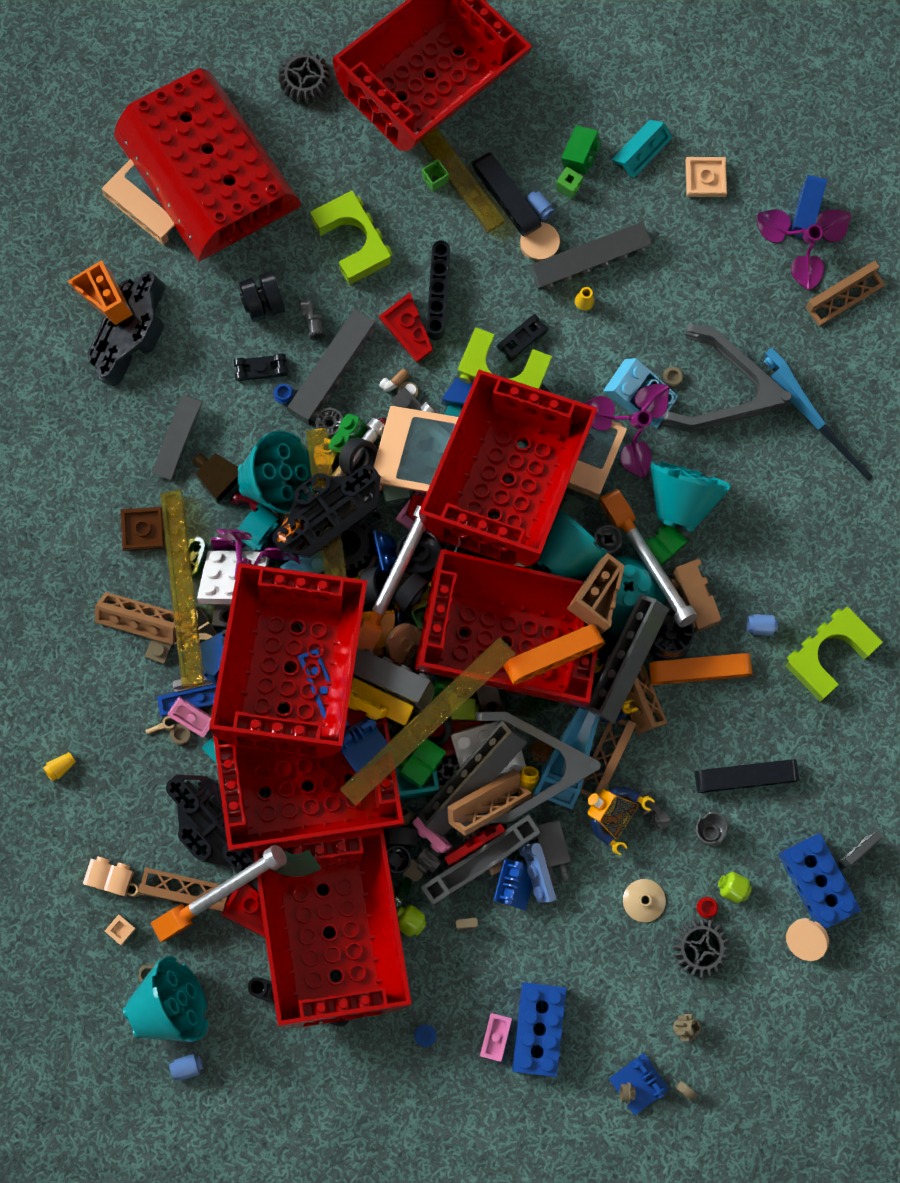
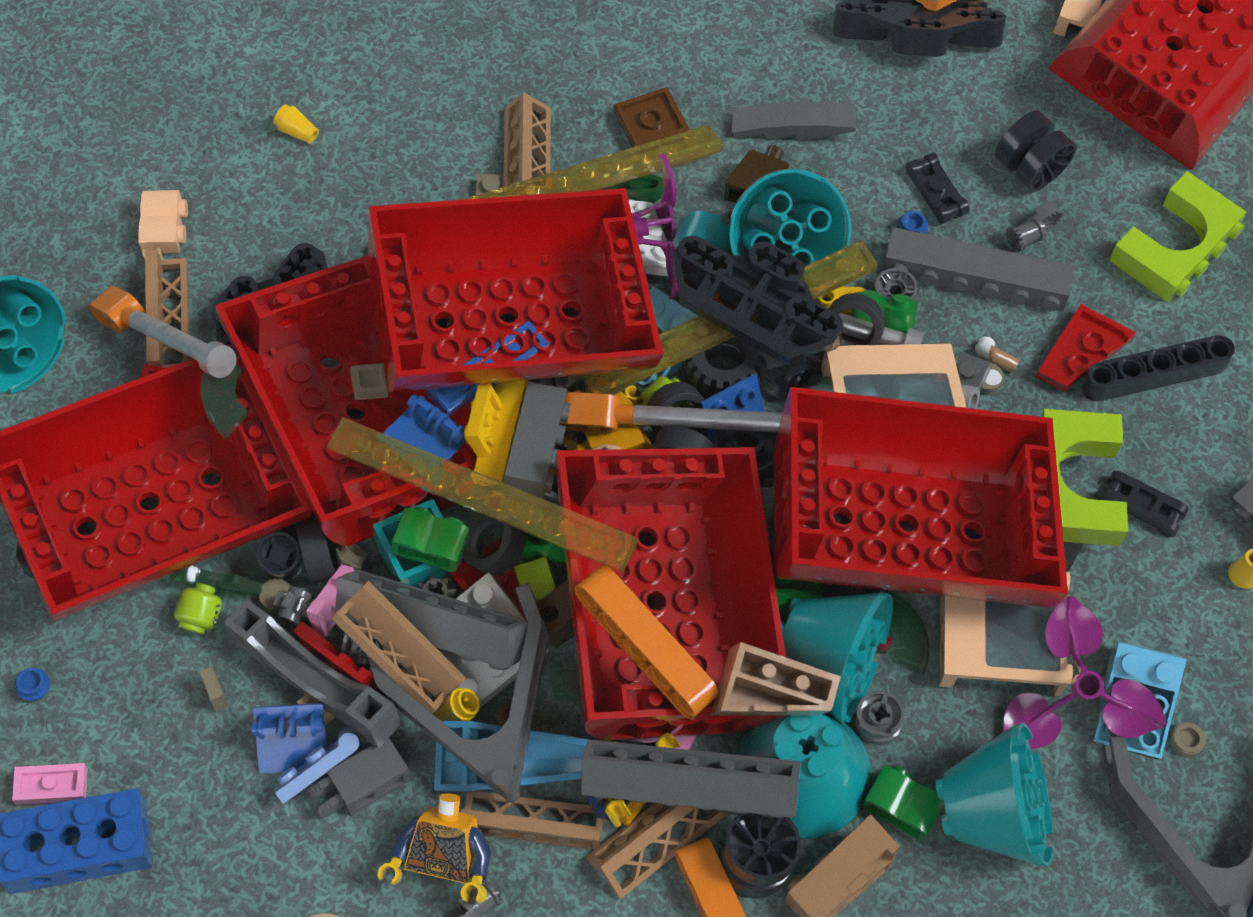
camera: 75 degrees right, 15 degrees down
(120, 929) = (94, 257): light nougat plate -> none
(312, 767) = (369, 381): none -> dark tan tile
(623, 517) = (922, 724): flat silver piece -> none

